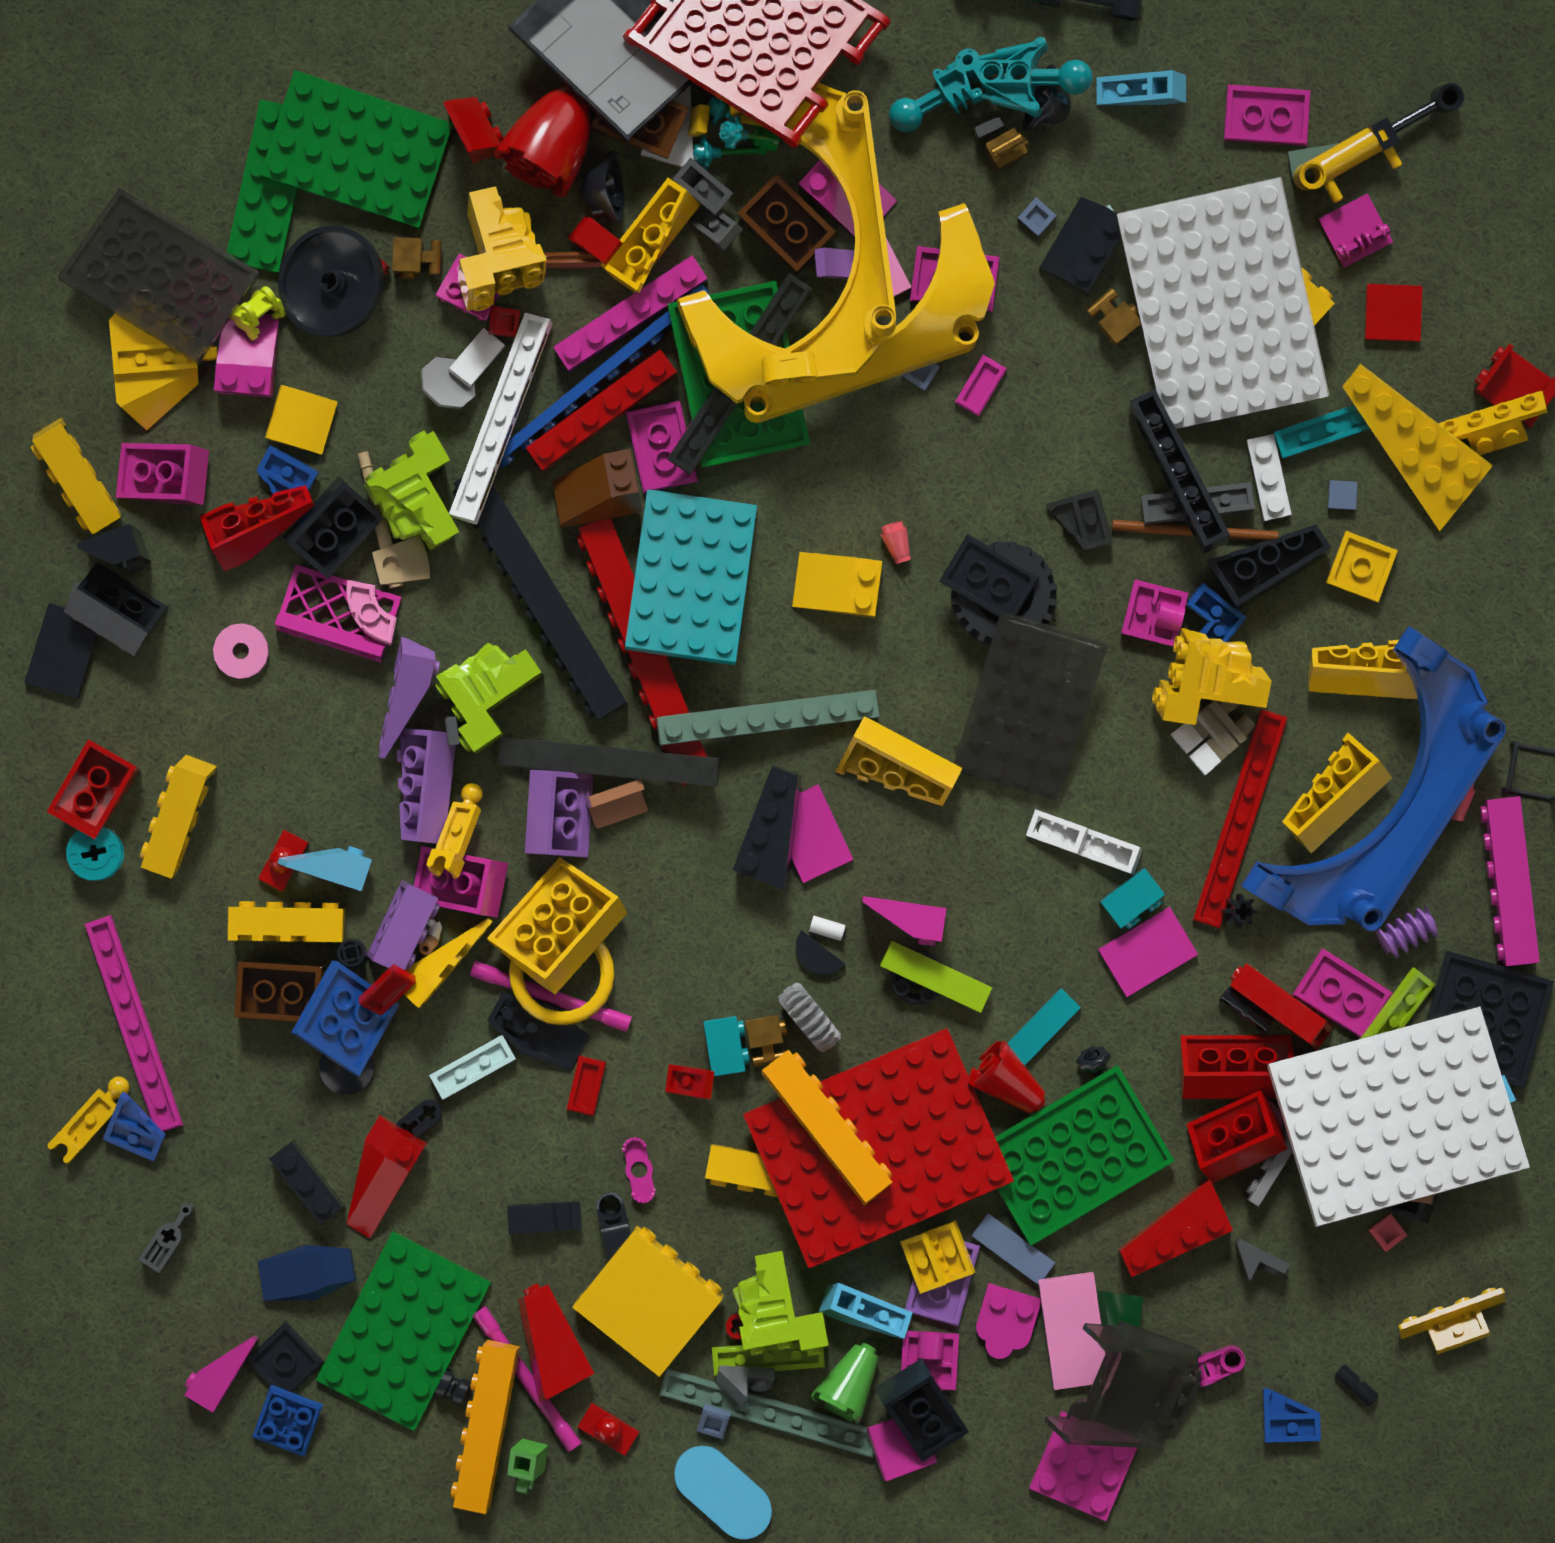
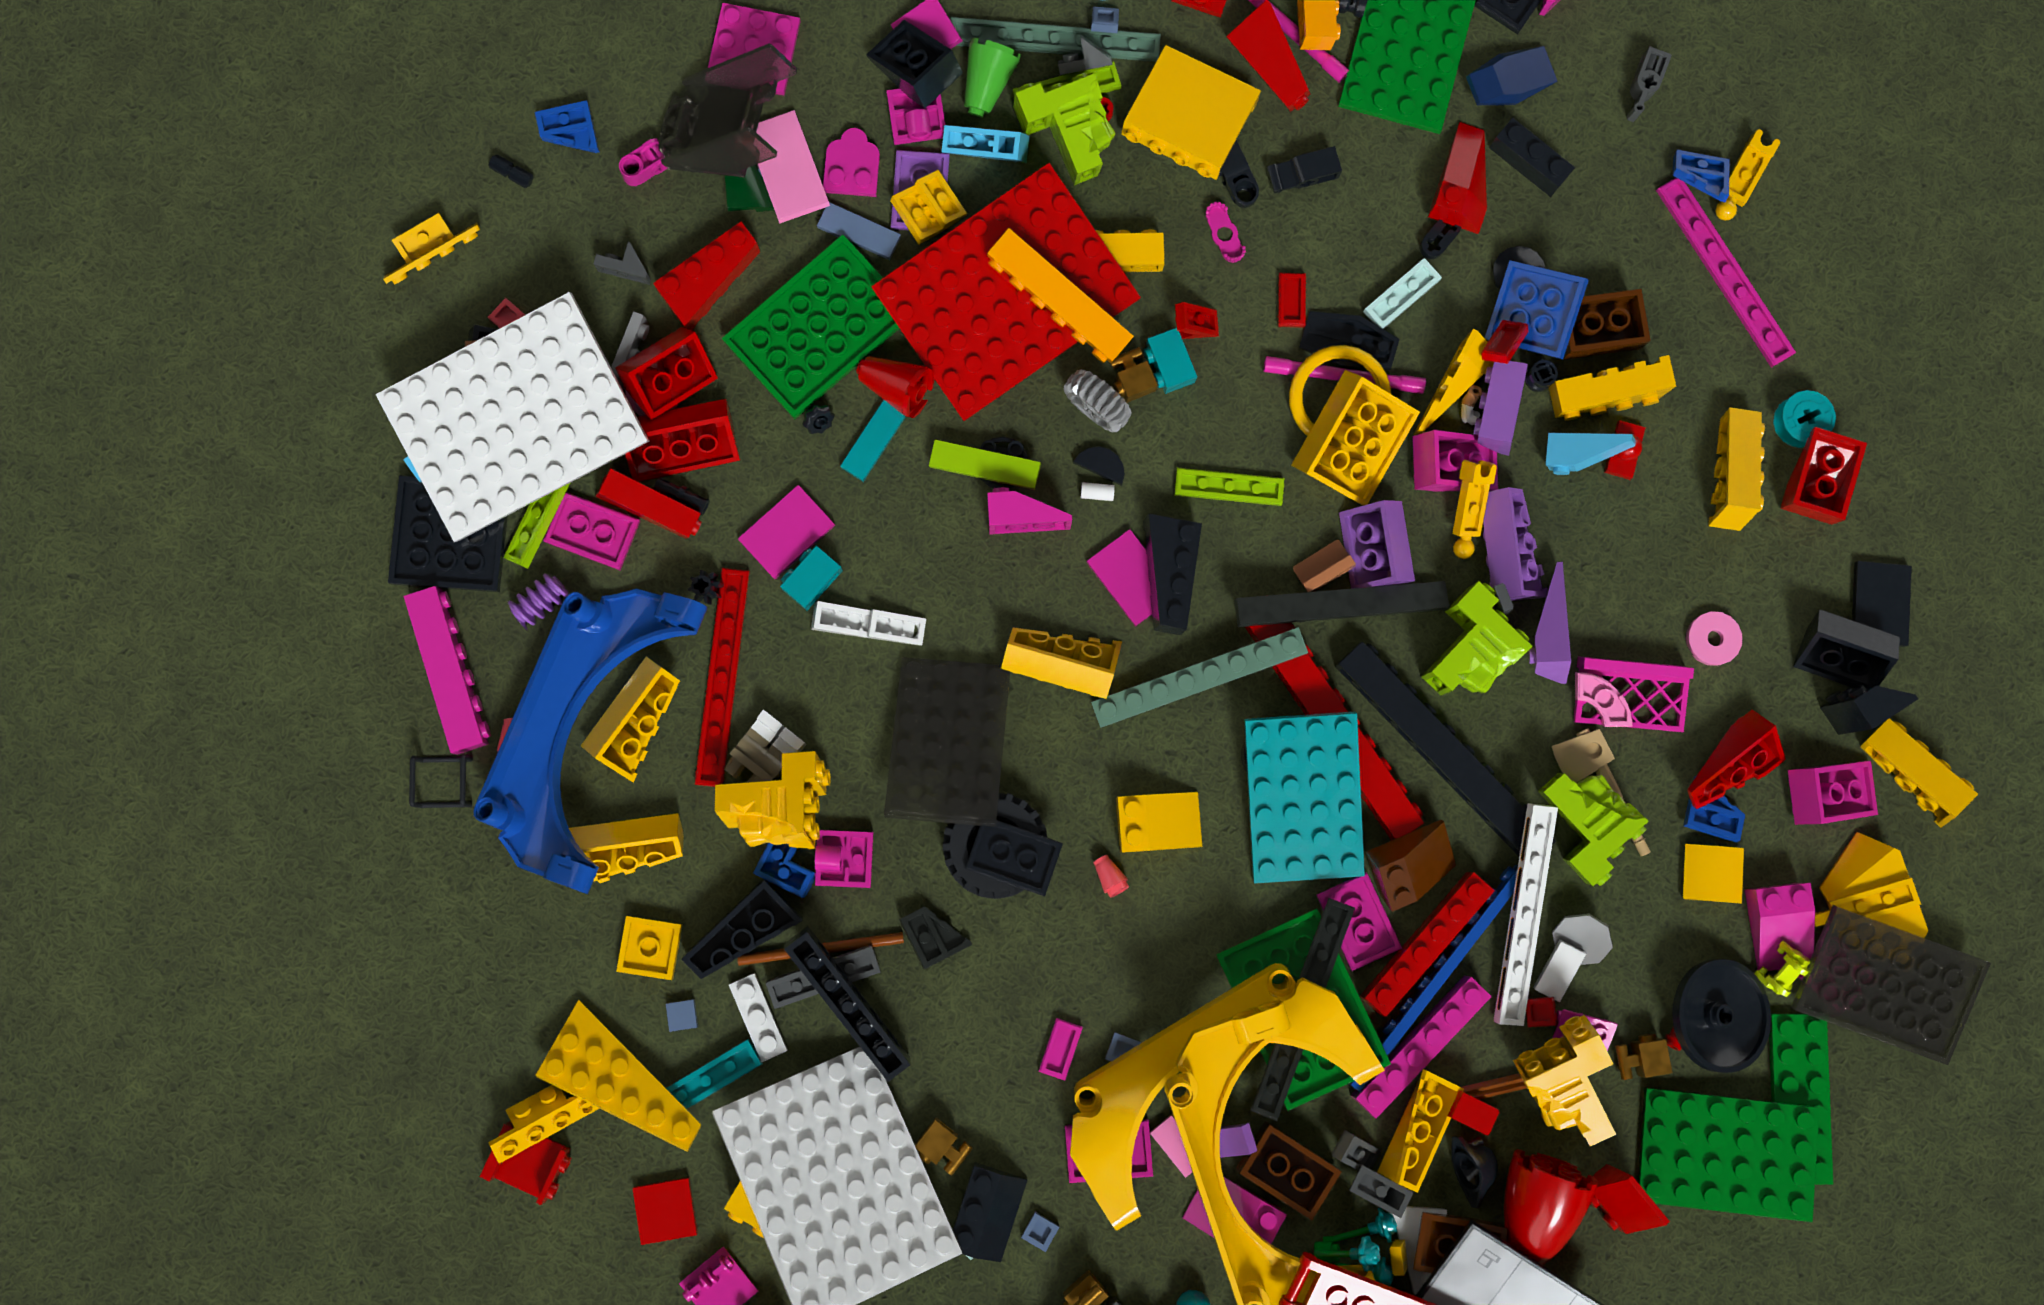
camera: 160 degrees right, 5 degrees down
(333, 527) = (1659, 773): black slope -> none
(693, 905) = (1229, 486): none -> lime tile

